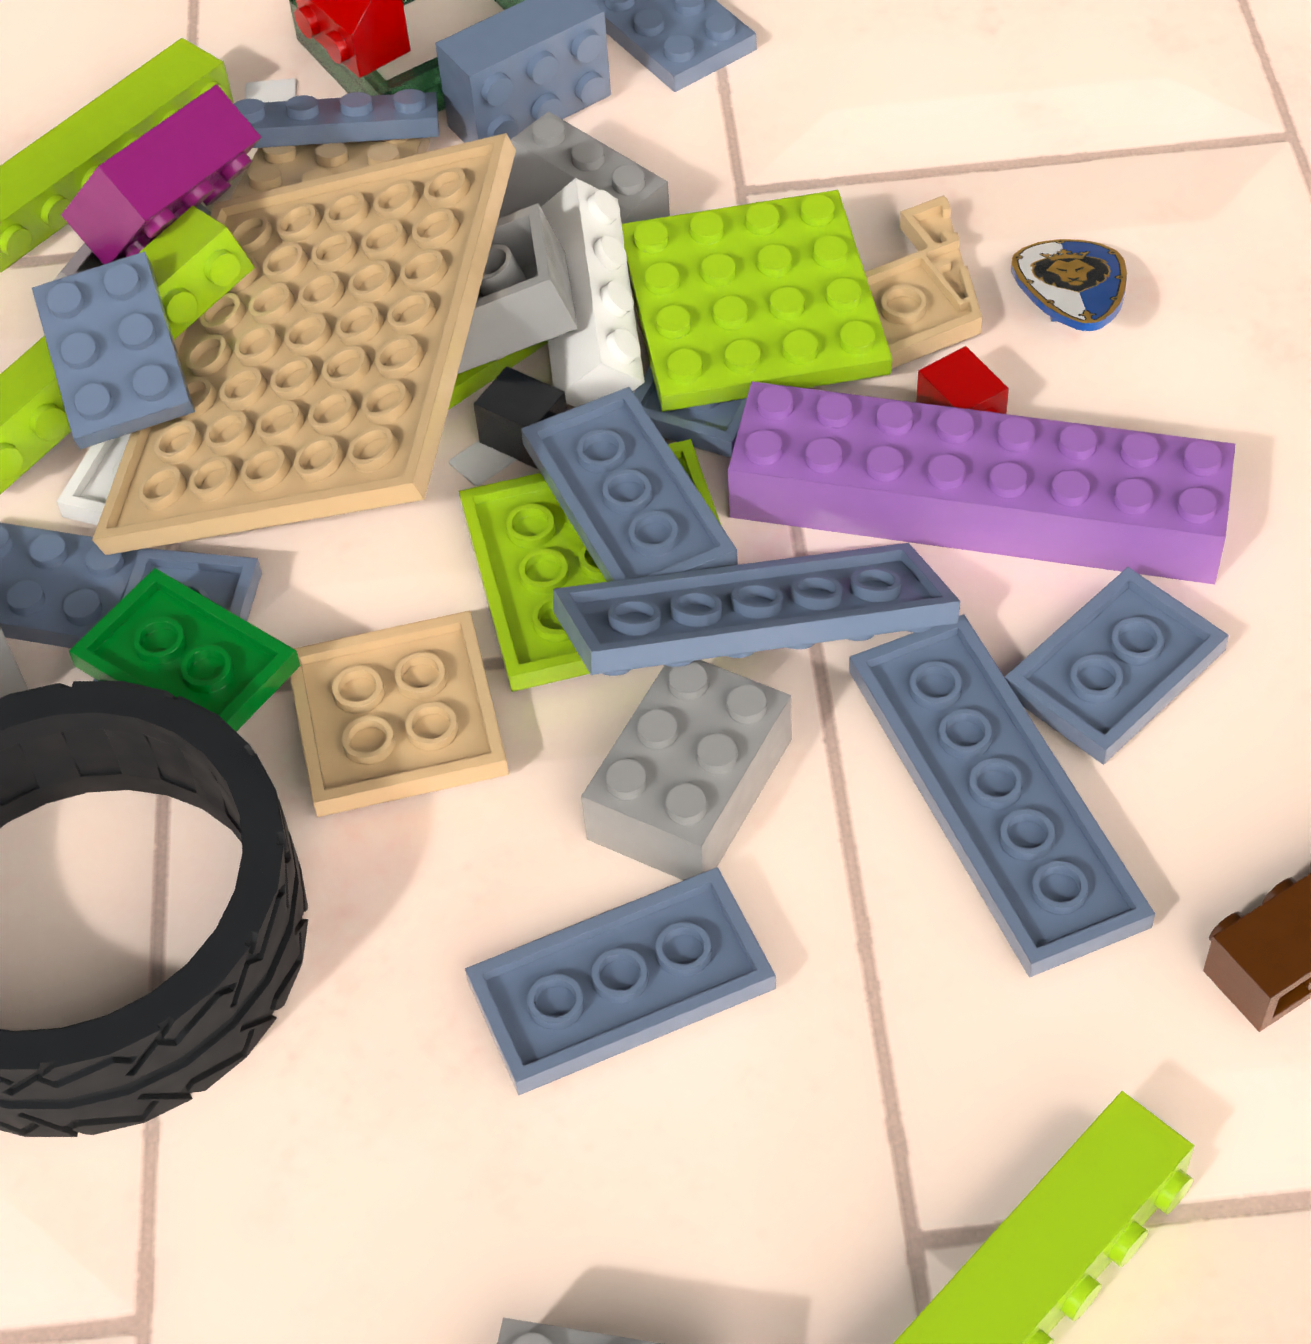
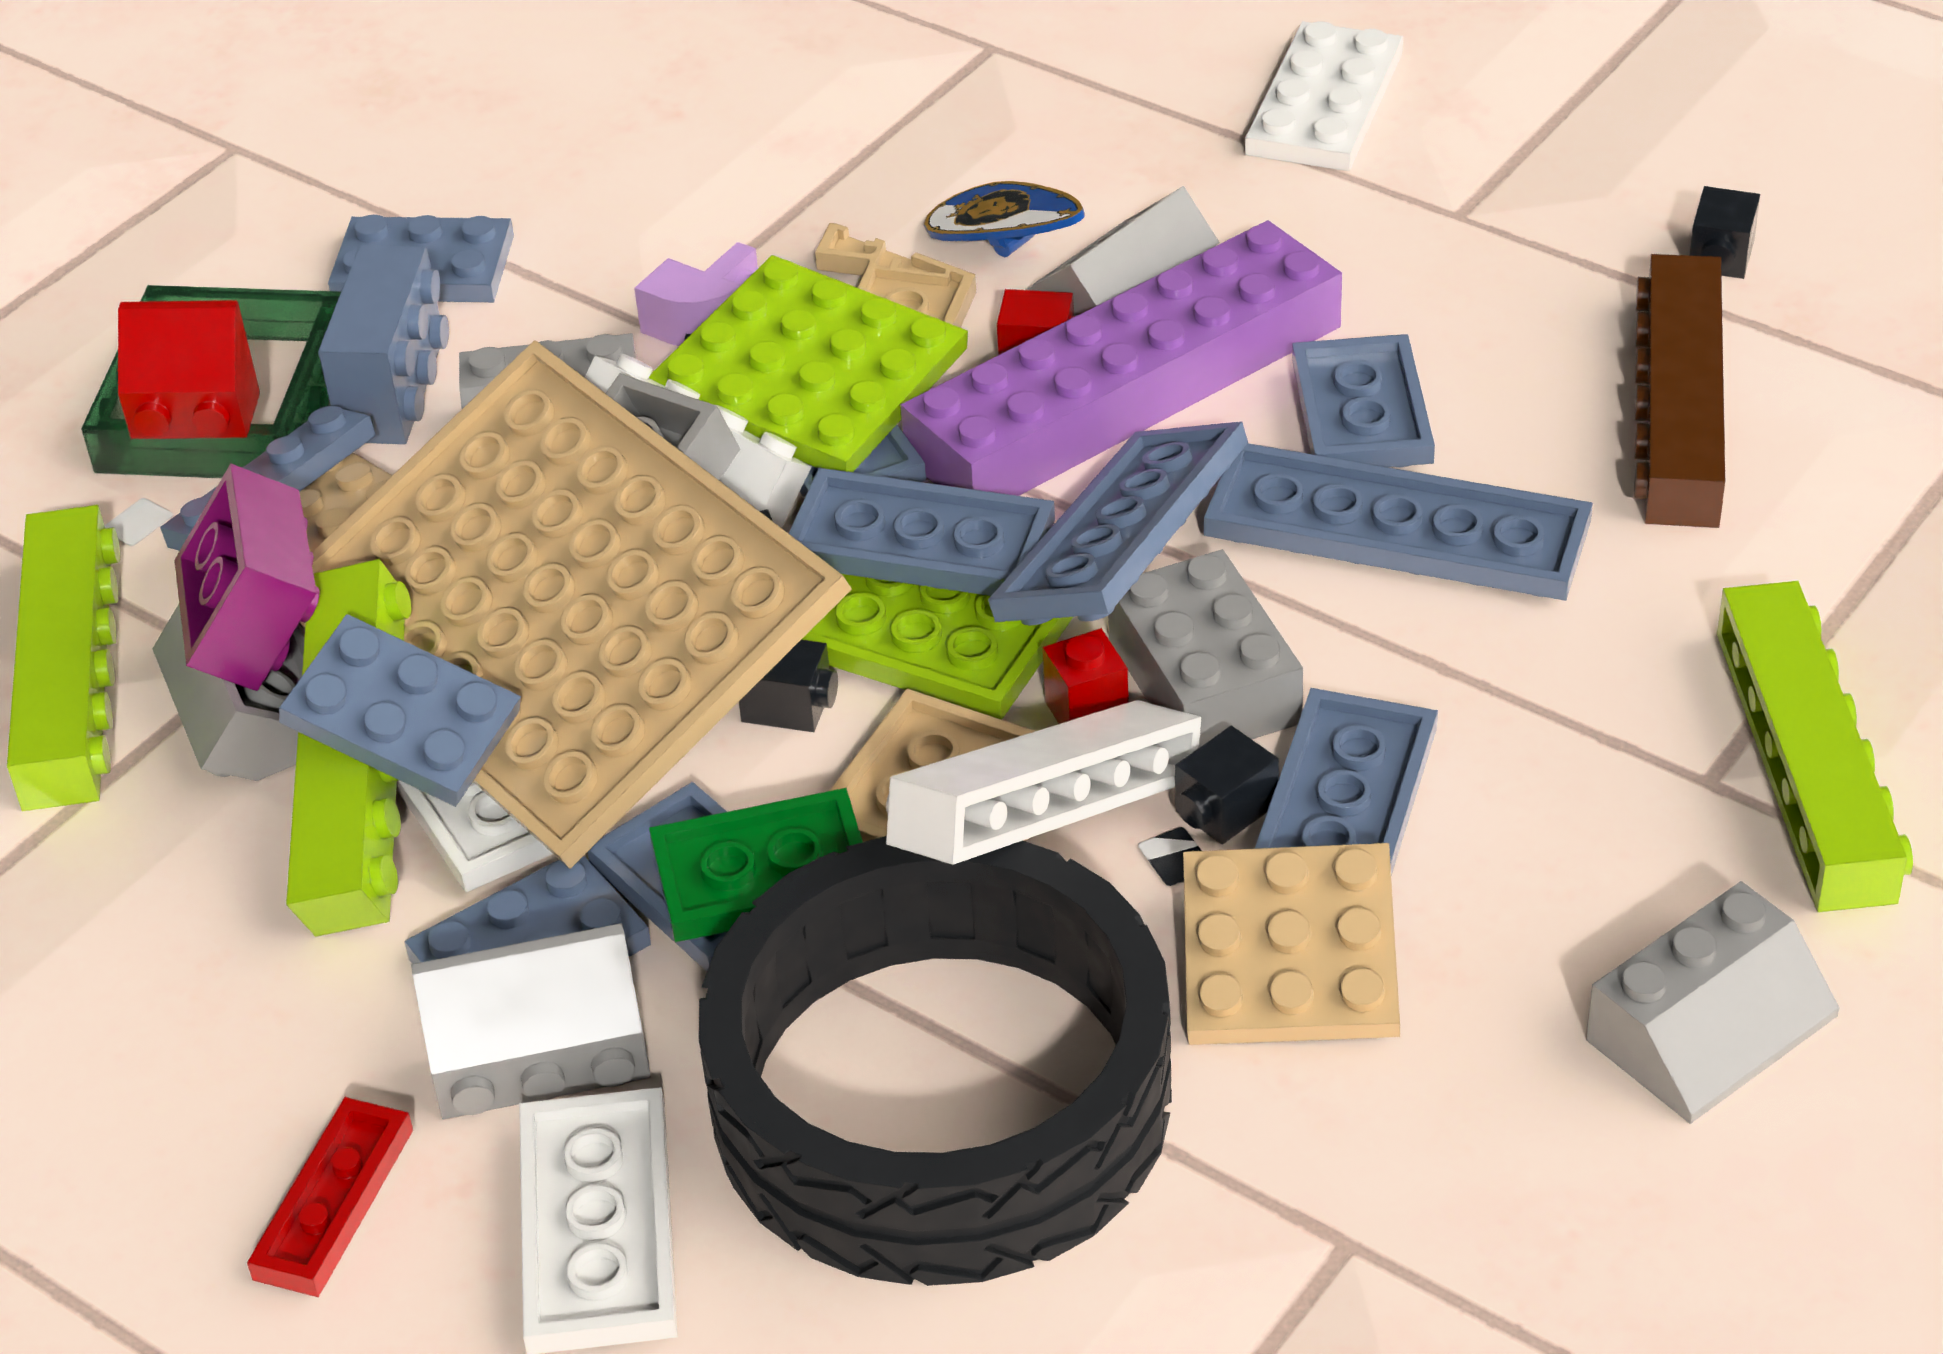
camera: 50 degrees left, 10 degrees down
(371, 766) = (1038, 781): none -> white brick
(410, 1057) = (1290, 944): none -> tan plate
(415, 540) = (793, 690): none -> black brick
(471, 908) = (1166, 854): none -> sticker
(552, 884) = (1225, 784): none -> black brick
(578, 716) = (1083, 676): none -> red brick
(762, 174) = (681, 297): none -> lavender brick
(1105, 392) = (1133, 252): none -> slope

